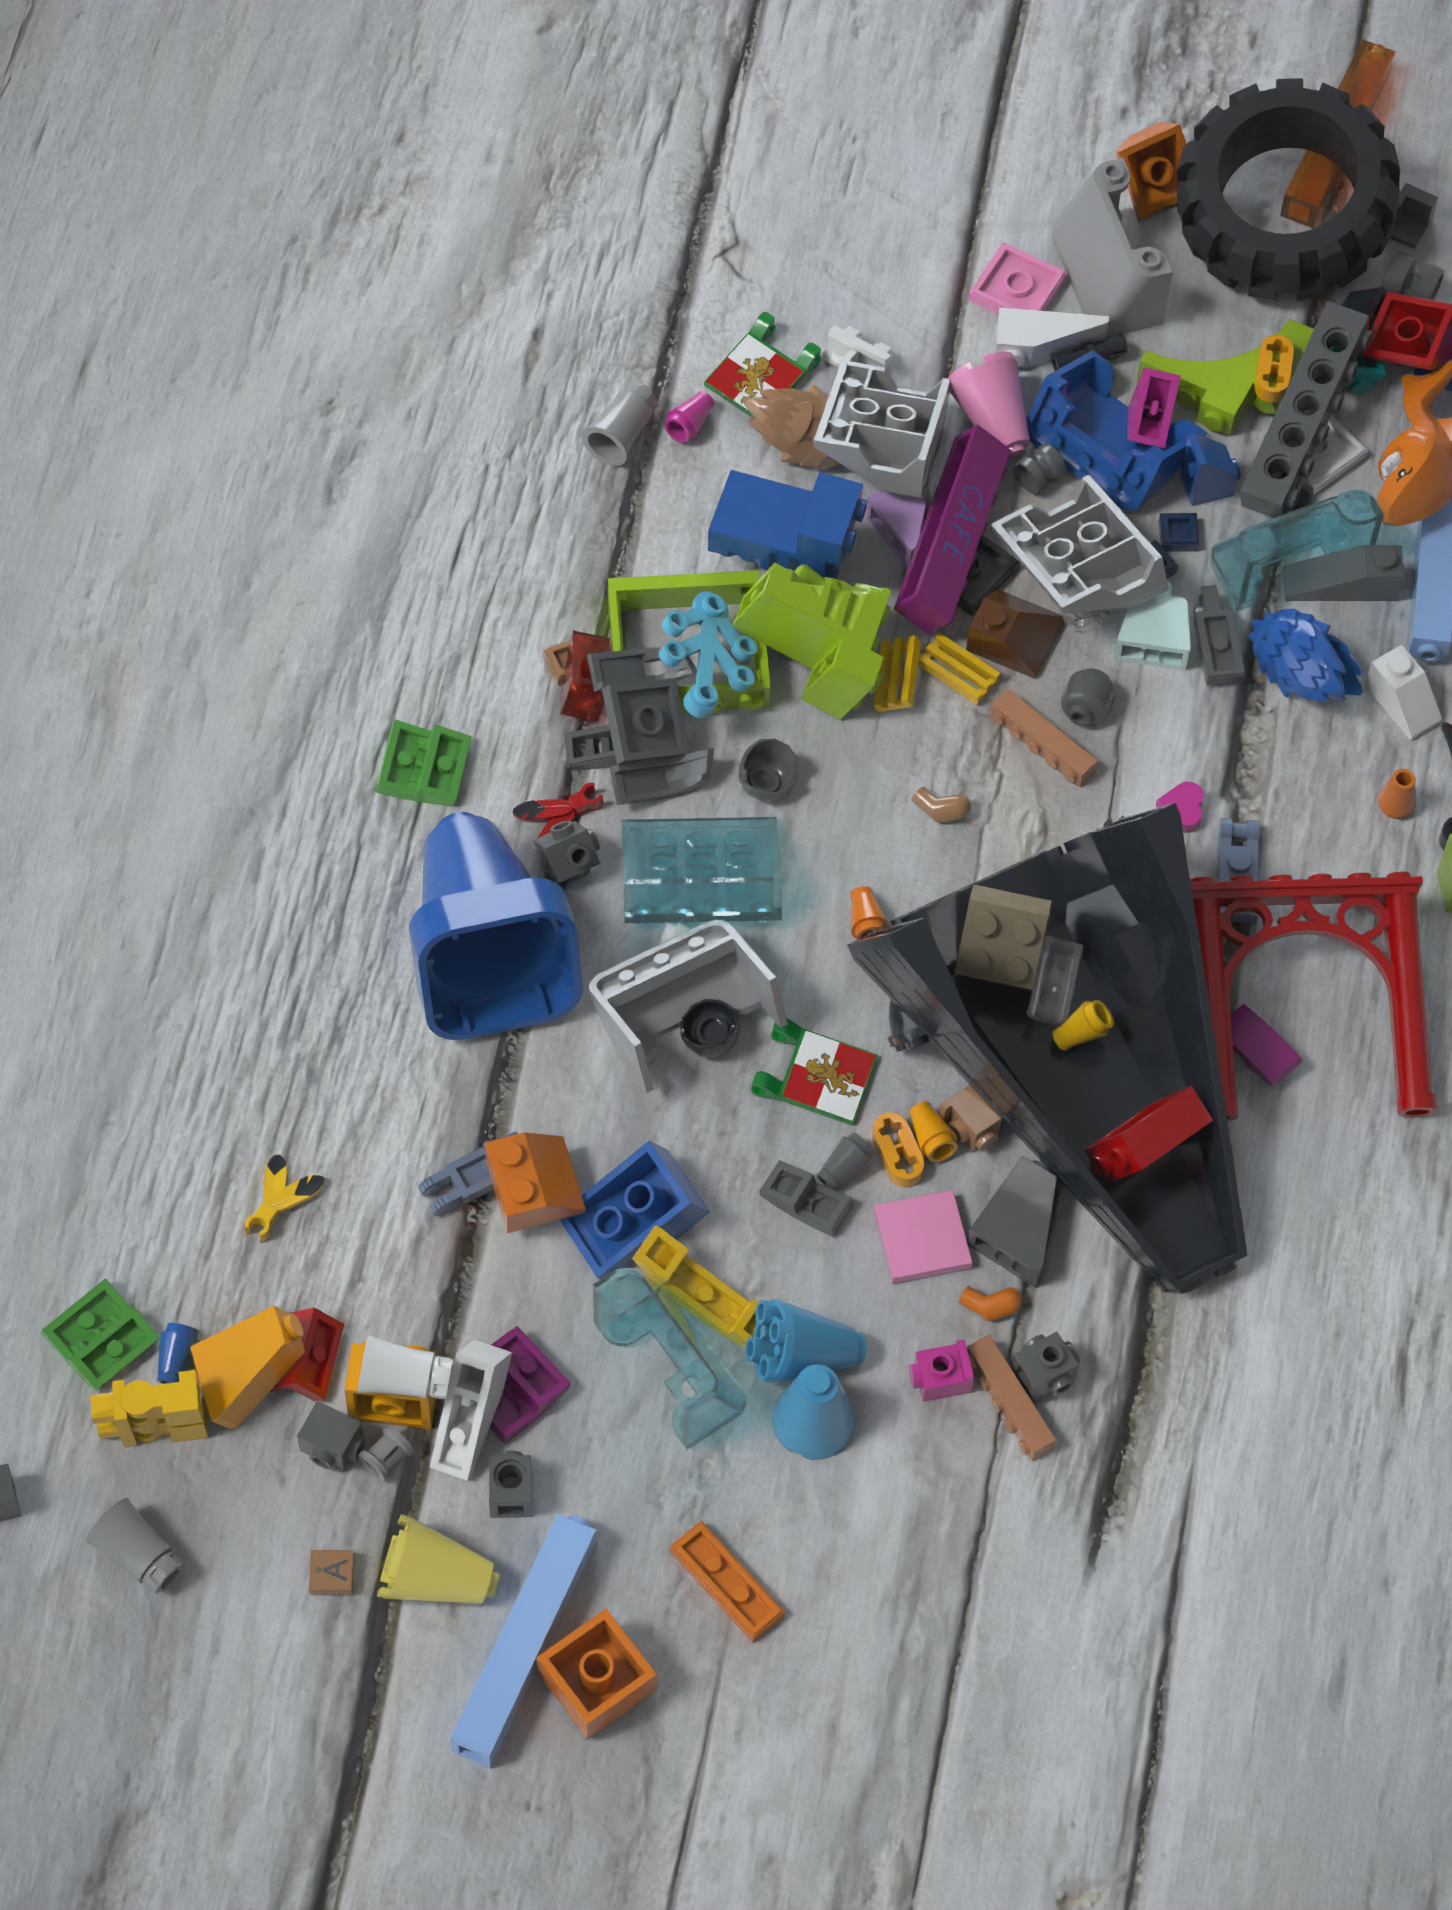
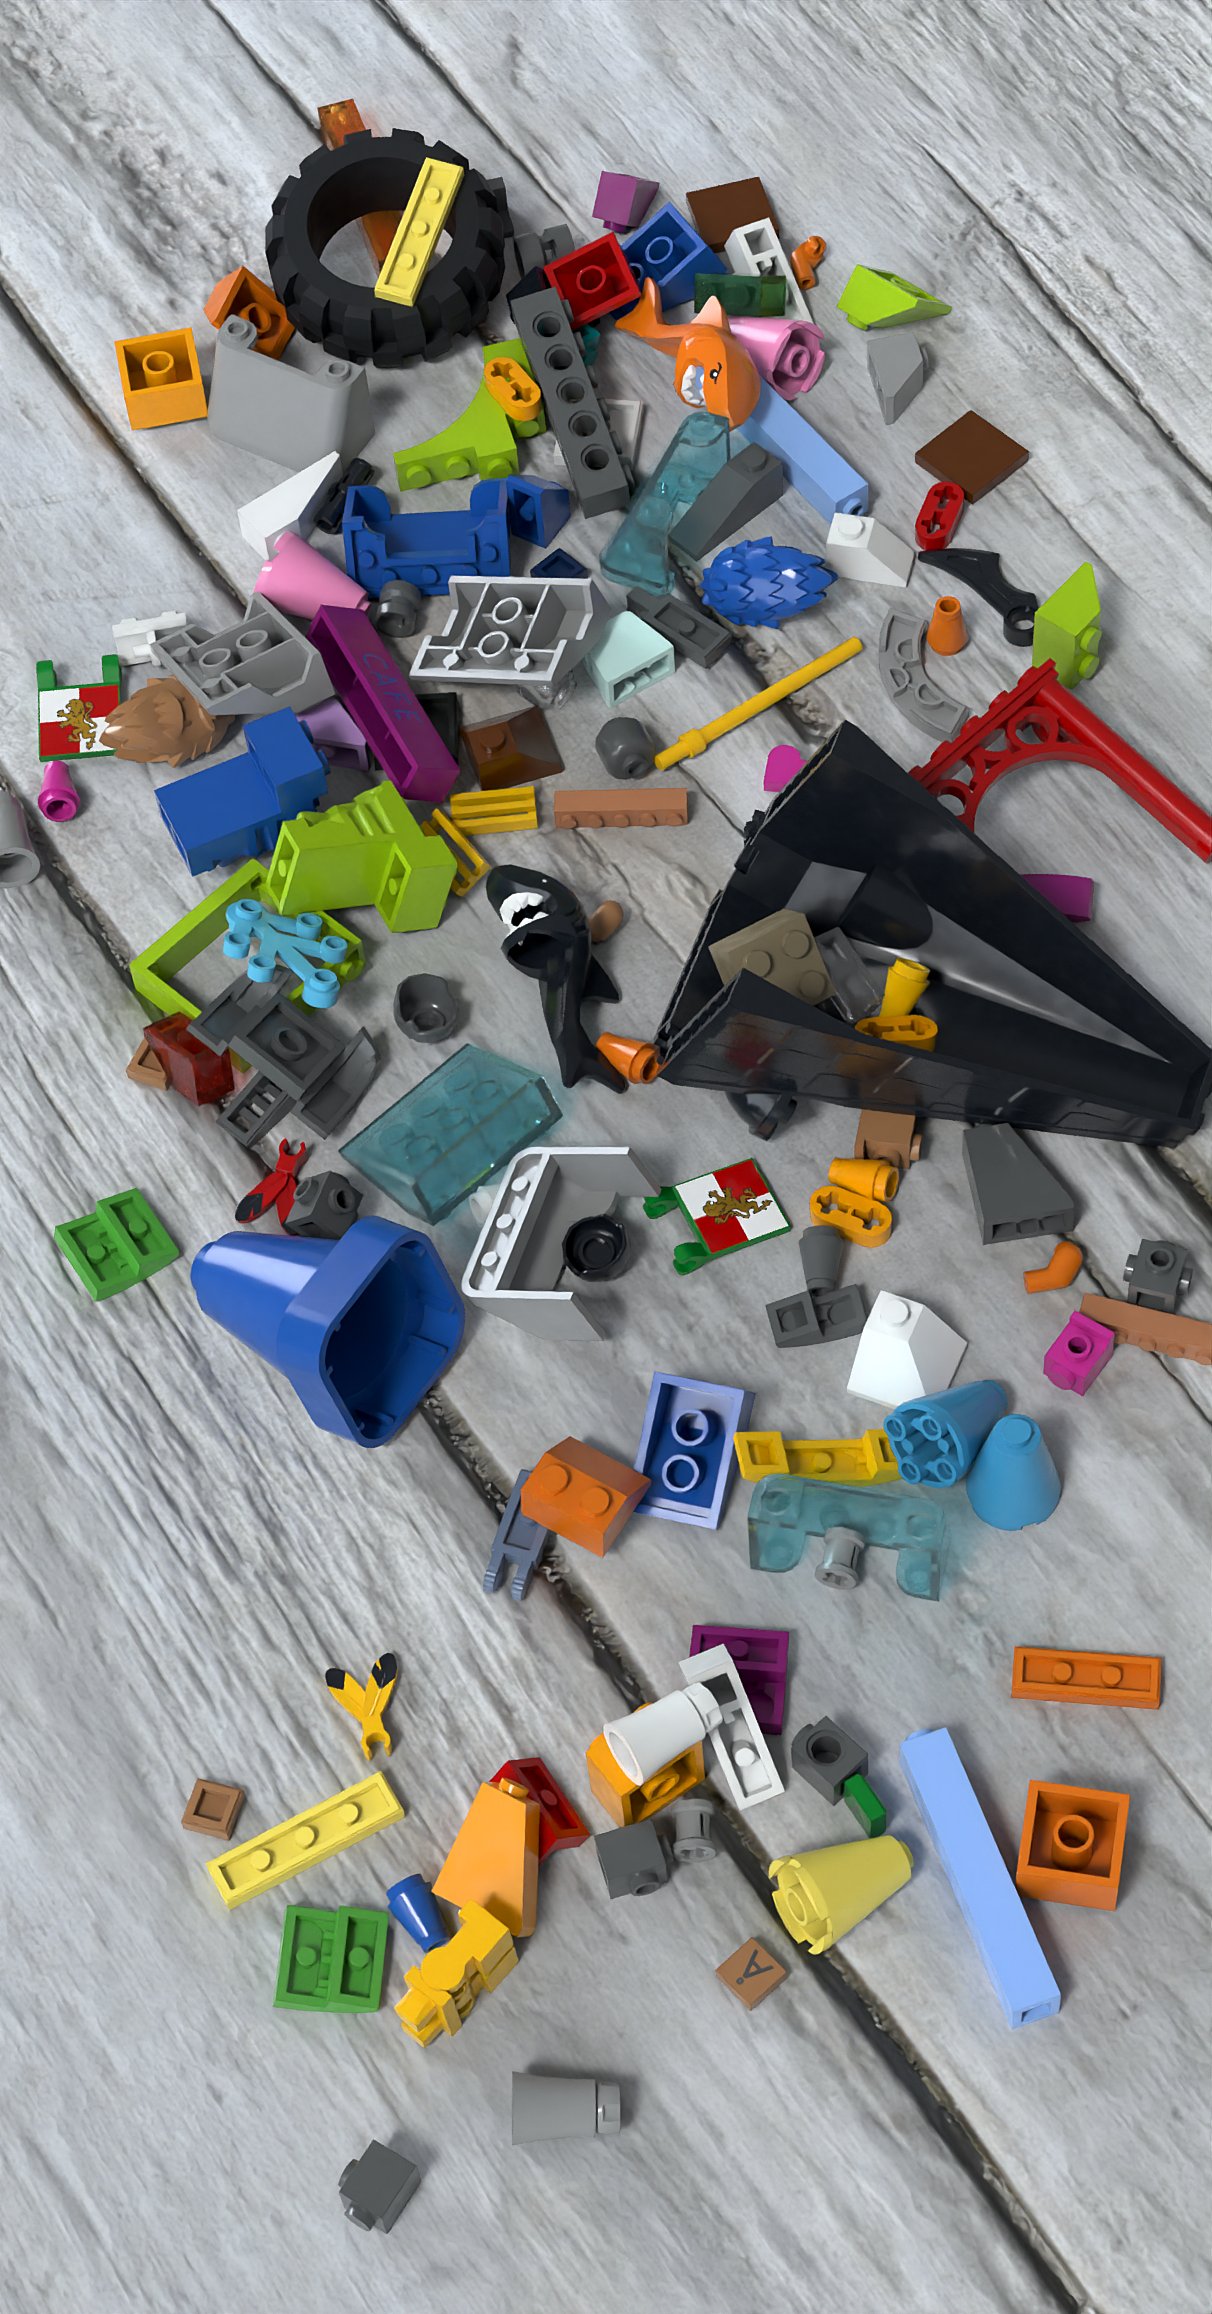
camera: 35 degrees left, 5 degrees down
(125, 1180) = (213, 1809): none -> medium nougat tile
(159, 1248) = (305, 1840): none -> light yellow tile
(502, 1534) = (865, 1806): none -> green tile
(652, 1366) = (840, 1558): none -> light grey bush
(832, 1272) = (904, 1353): none -> white slope
(891, 804) = (558, 953): none -> black piece
(922, 1236) = (943, 1267): bright pink tile -> none
(1016, 282) = (222, 487): bright pink tile -> none
(1046, 1053) = (907, 1030): none -> light orange beam
(1048, 165) = (161, 378): none -> light orange brick
(1140, 731) = (695, 741): none -> yellow bar
(1148, 1135) = (1053, 1020): red window -> none
(1152, 407) = (442, 493): dark pink slope -> none
(1305, 198) = (419, 232): none -> light yellow tile
(1336, 807) = (908, 685): none -> light grey tile

